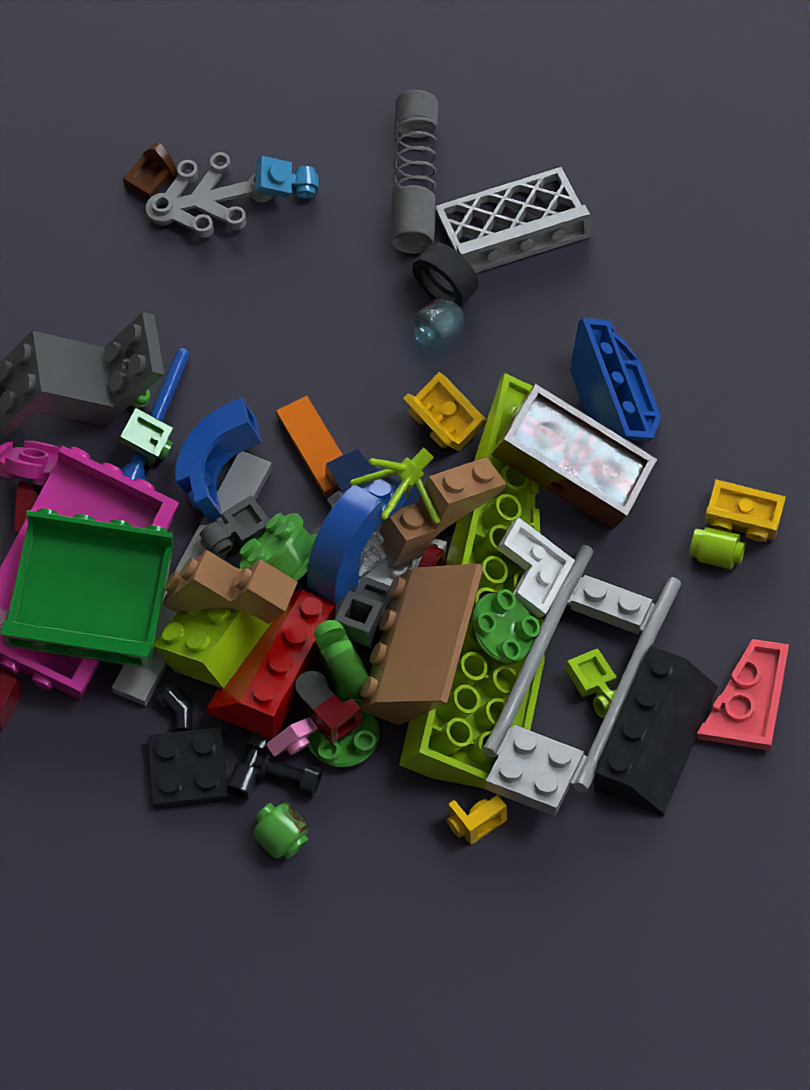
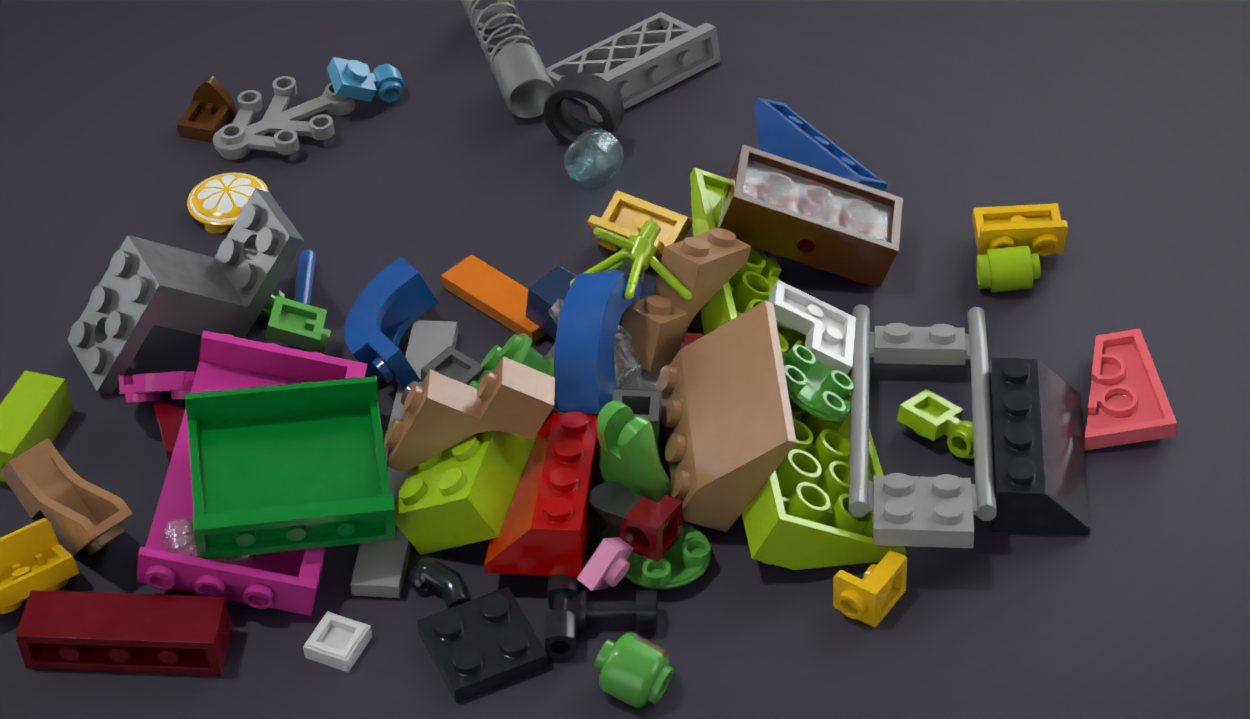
camera: 20 degrees left, 20 degrees down
(89, 731) = (337, 641): none -> white tile
(140, 274) = (220, 199): none -> dish

